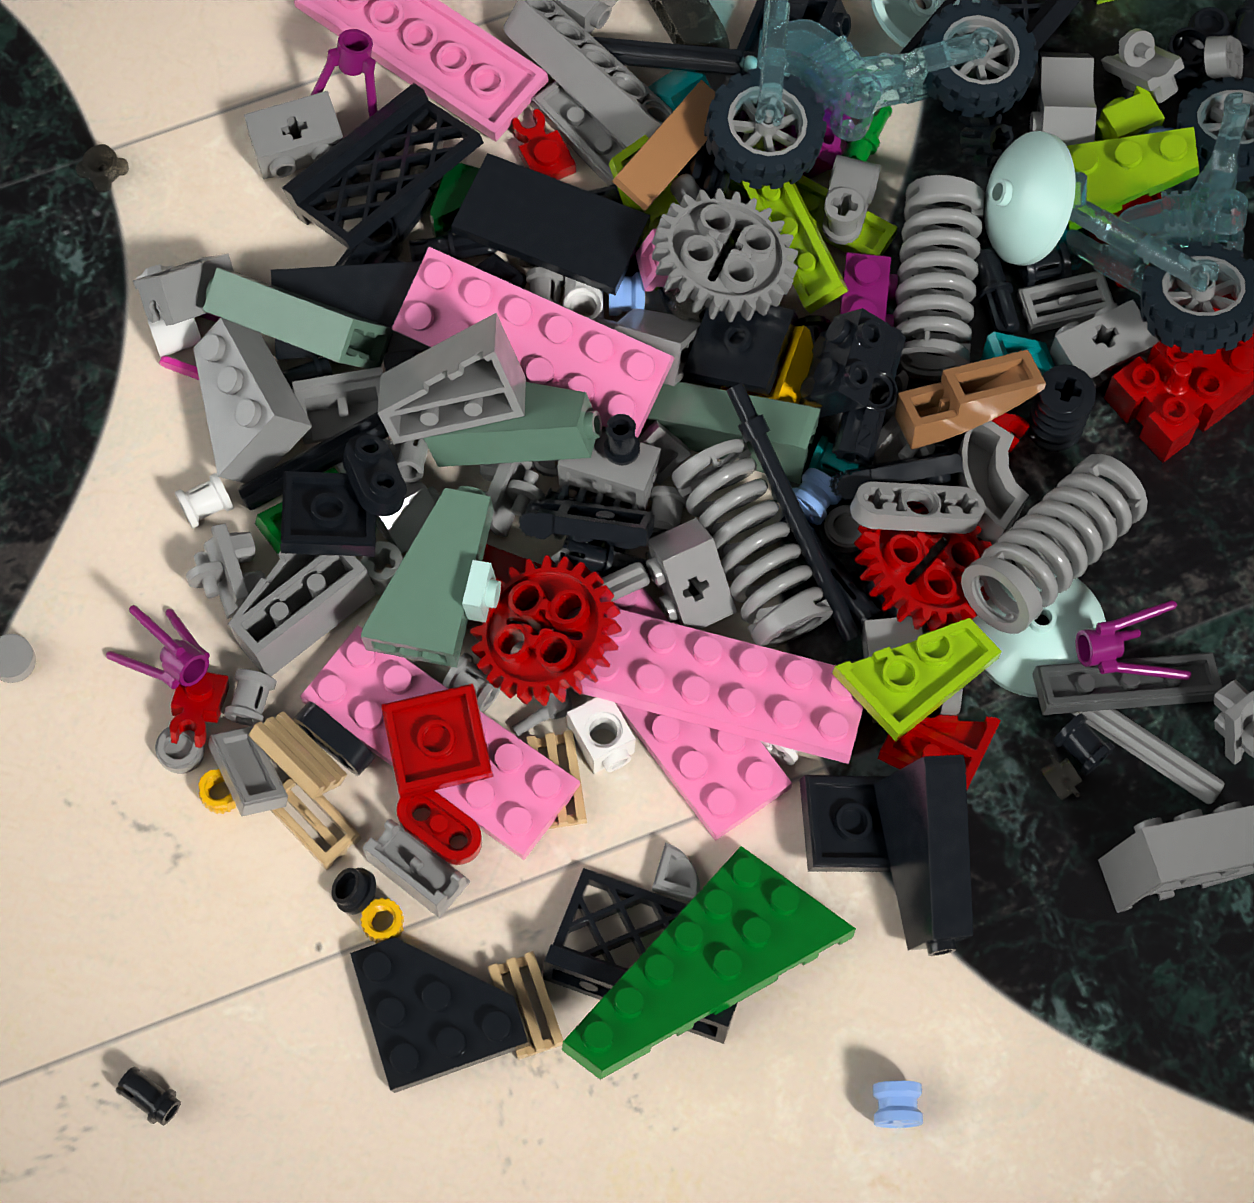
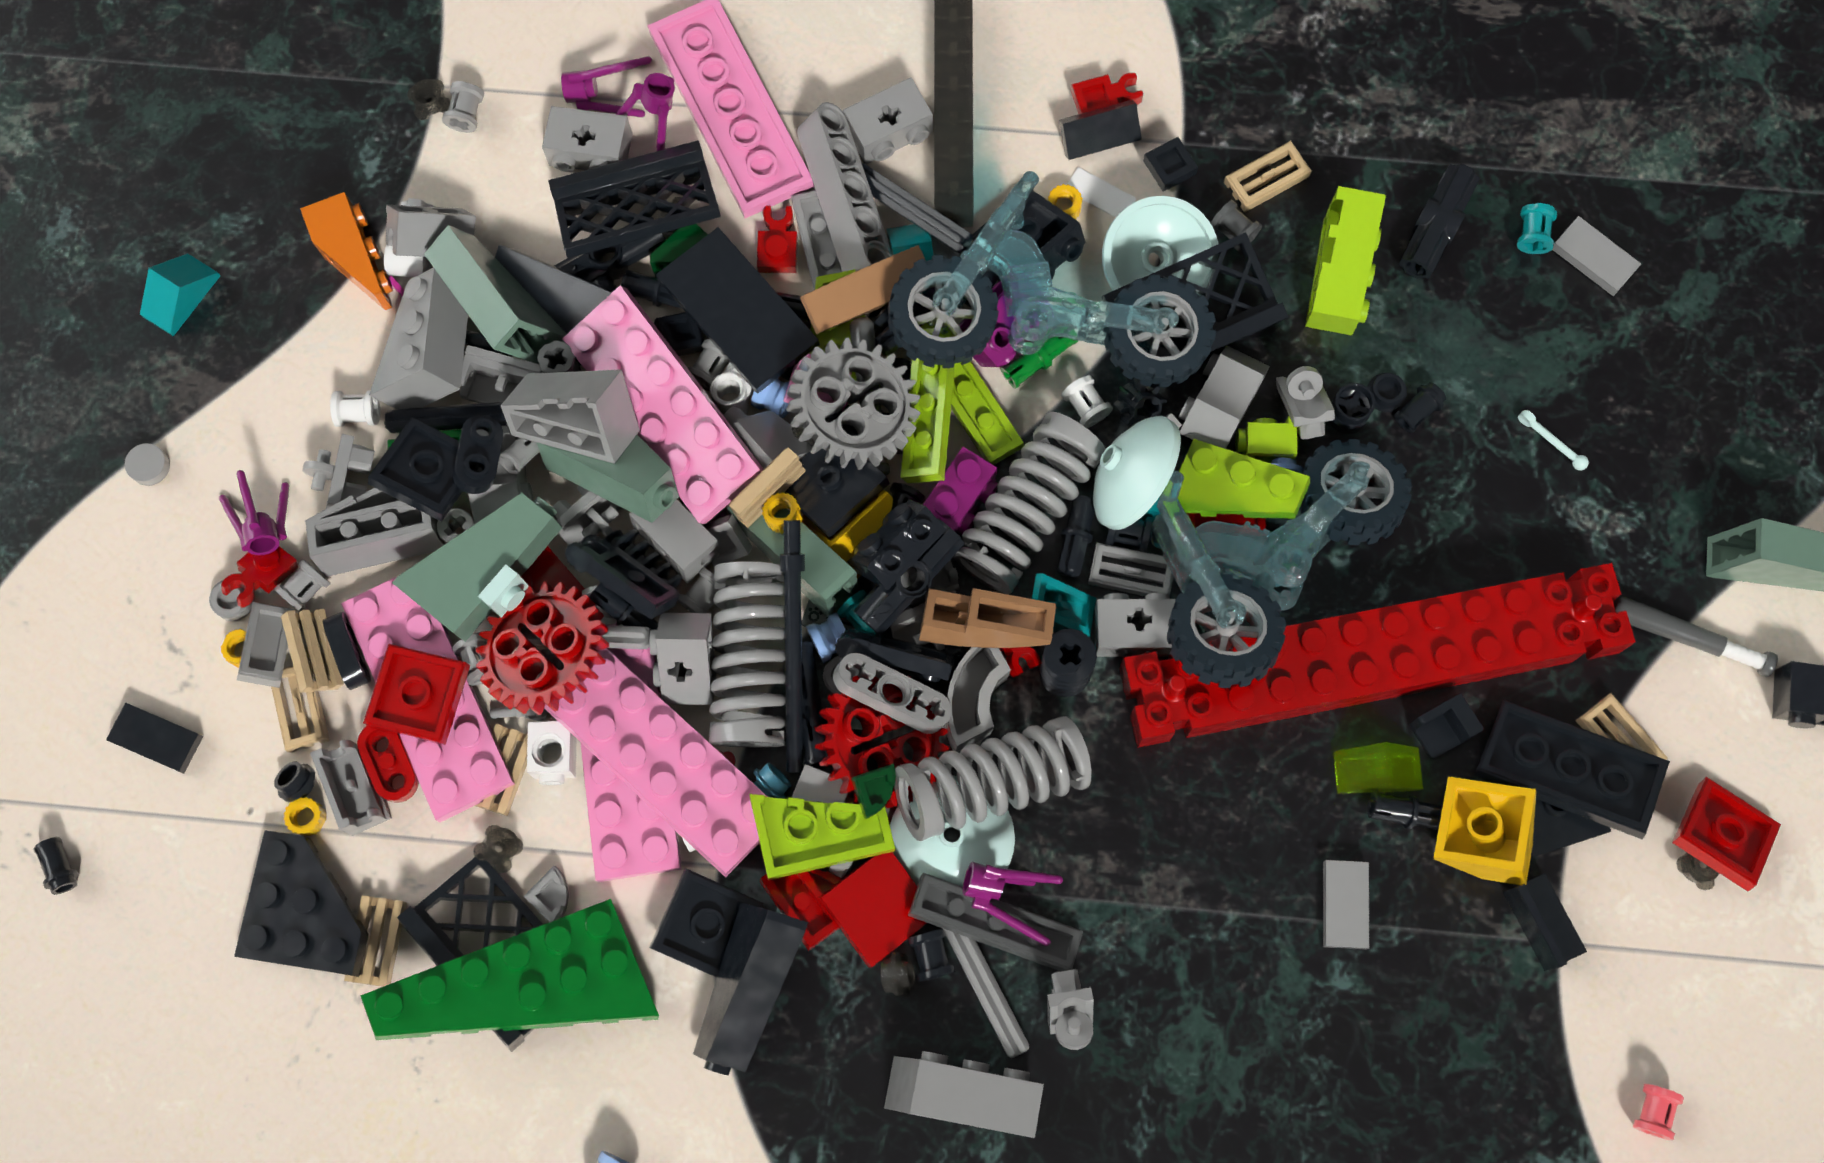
camera: 30 degrees right, 5 degrees up
(97, 347) = (340, 238): none -> orange slope
(145, 158) = (463, 107): none -> light grey bush
(178, 922) = (154, 738): none -> black tile
(257, 85) = (582, 85): none -> magenta plant
(394, 346) = (555, 354): none -> dark grey bush
(601, 852) = (498, 837): none -> clear smoke plate
(621, 444) = (682, 521): black pin -> none
(684, 372) = (773, 479): none -> tan tile
(703, 381) = (778, 502): none -> yellow axle
(834, 654) = (771, 781): none -> medium azure plate
(848, 198) = (995, 394): light grey piece -> none
(932, 160) = (1084, 388): none -> white bush
(952, 604) = (874, 789): none -> dark green tile
(1005, 724) = (874, 907): none -> red tile
(1223, 57) = (1378, 425): light grey beam -> none

